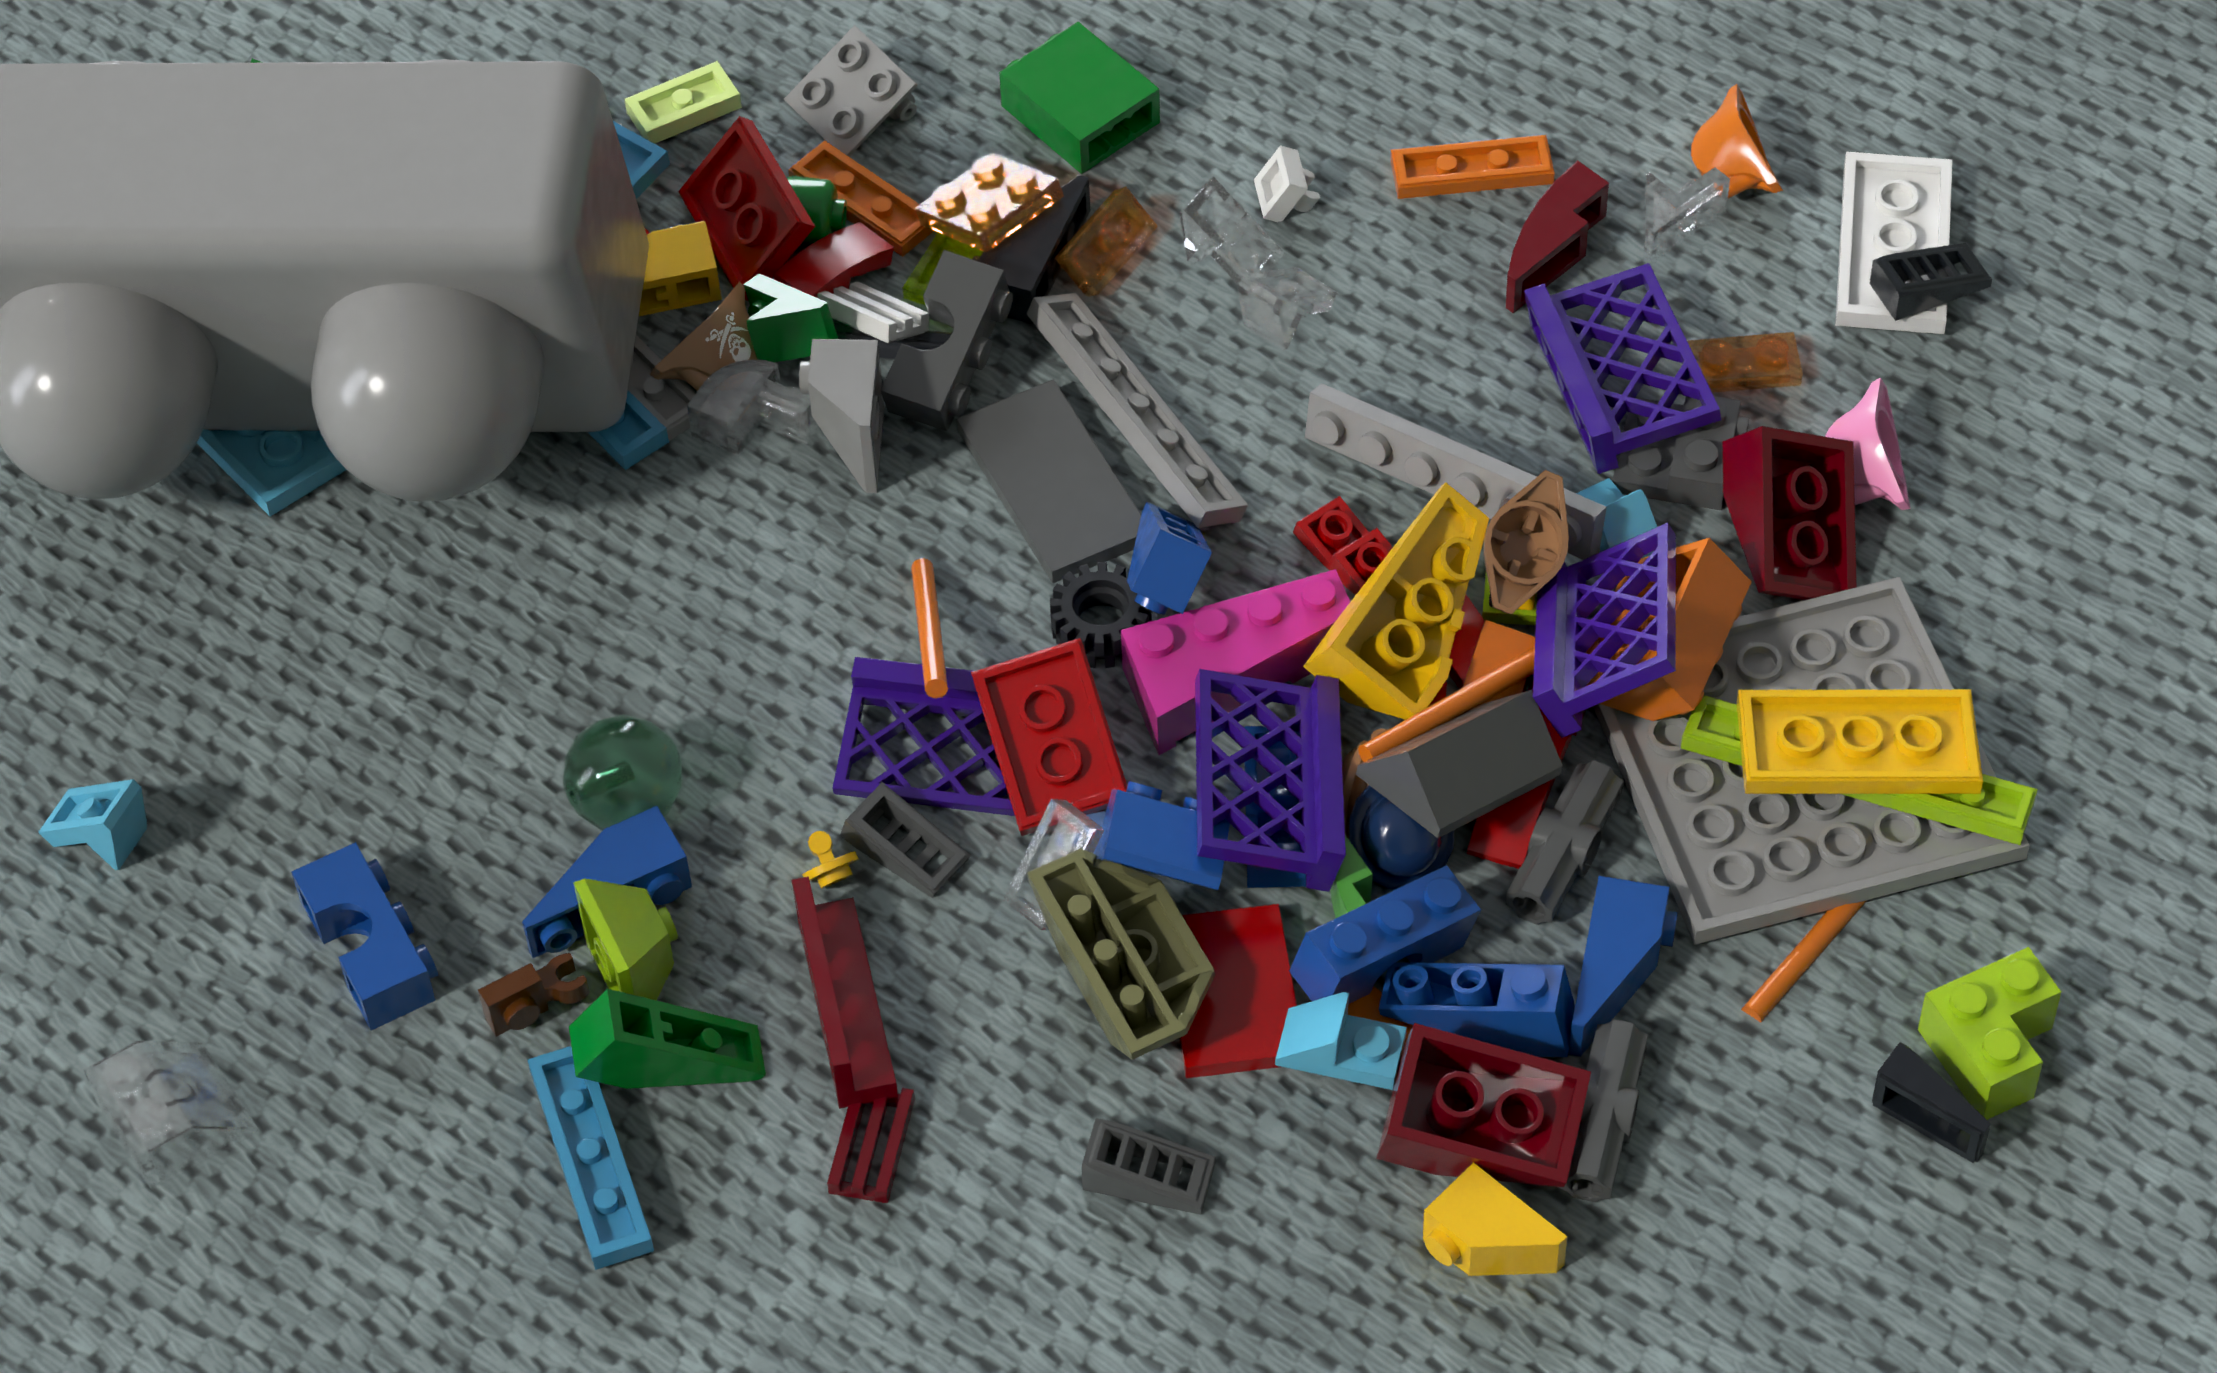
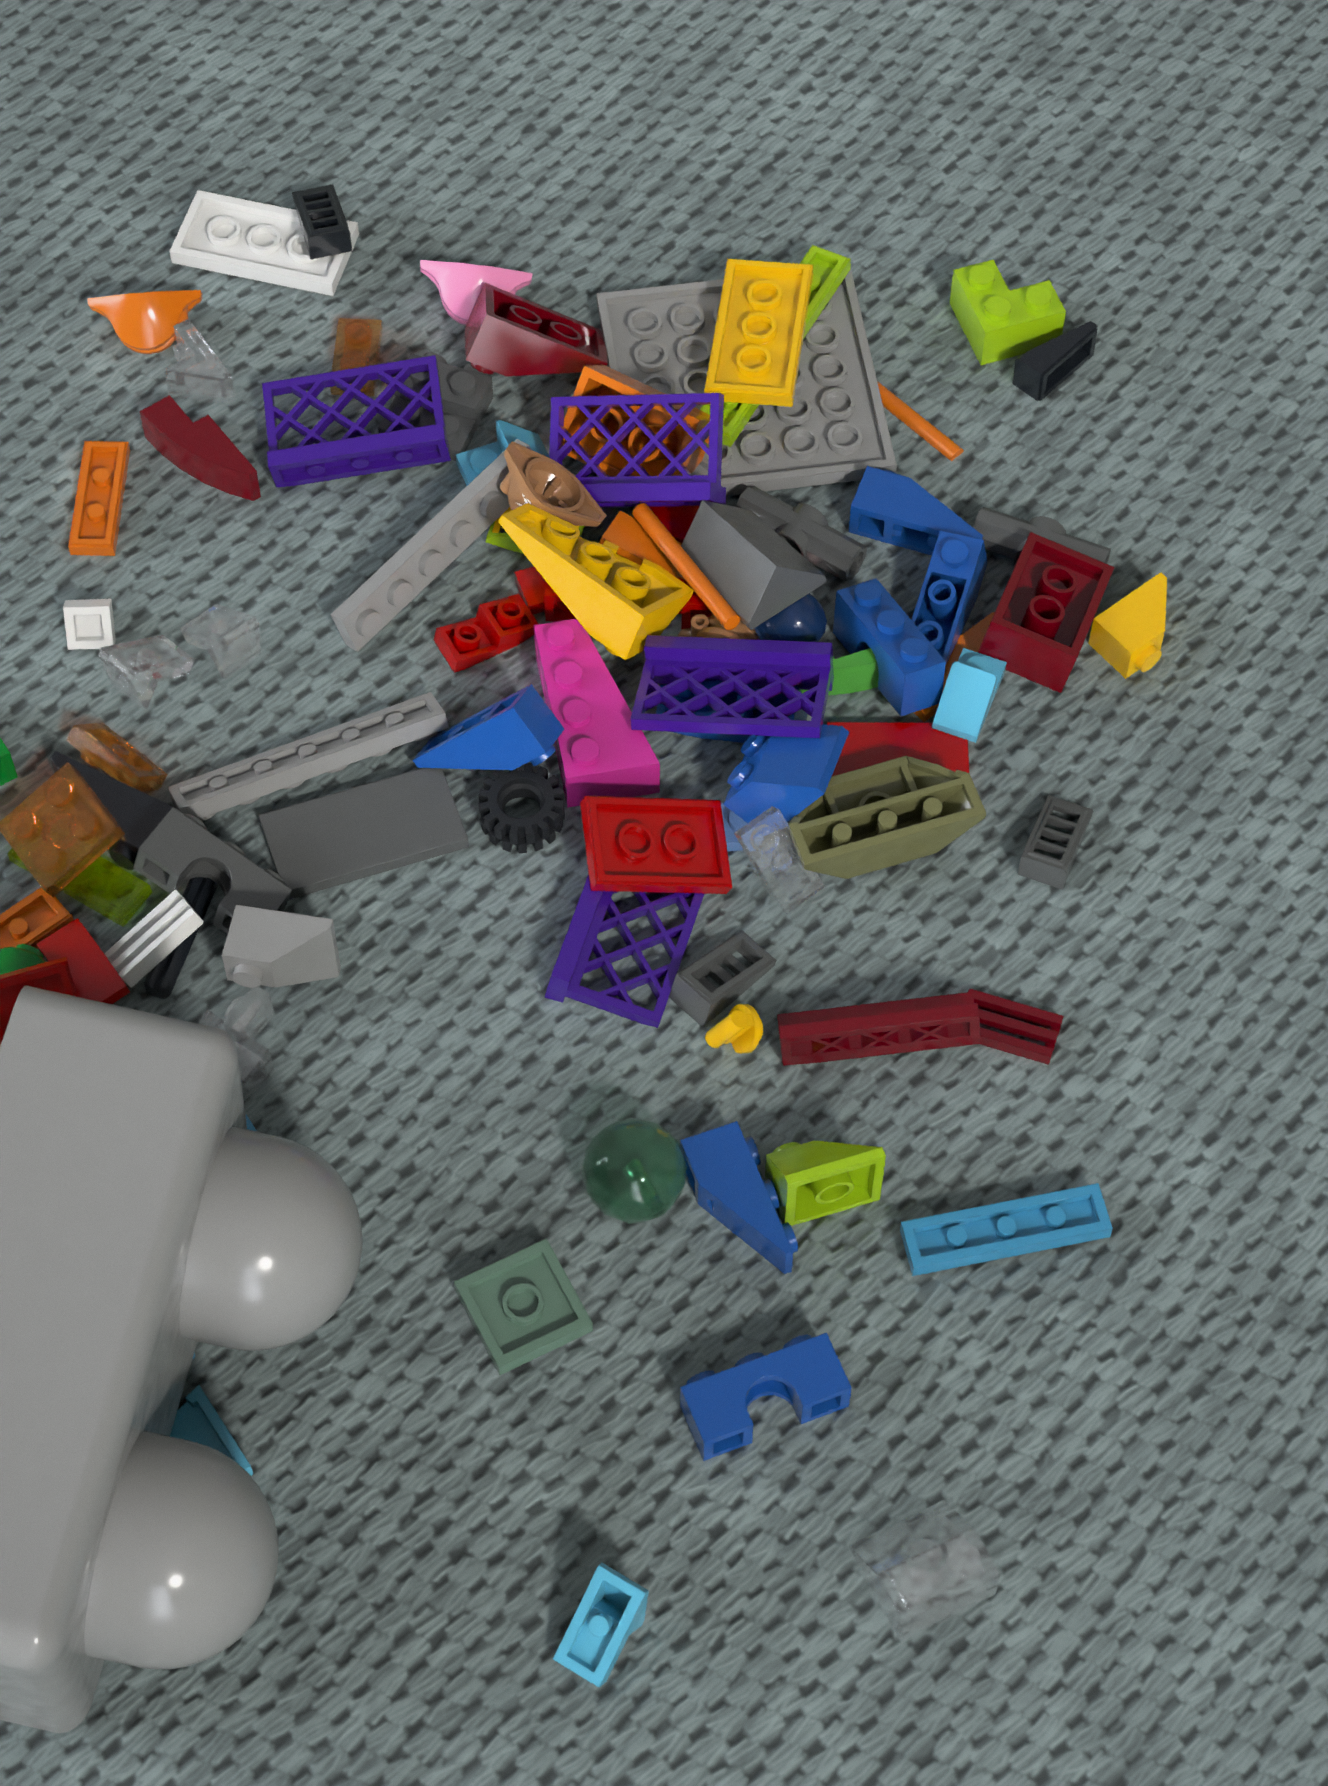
camera: 85 degrees left, 5 degrees up
(462, 707) = (523, 1306): none -> sand green plate
(523, 994) = (850, 1273): reddish brown plate -> none
(660, 1044) = (921, 1160): green slope -> none
(785, 320) = (160, 989): green slope -> none
(929, 628) = (525, 921): orange bar -> none

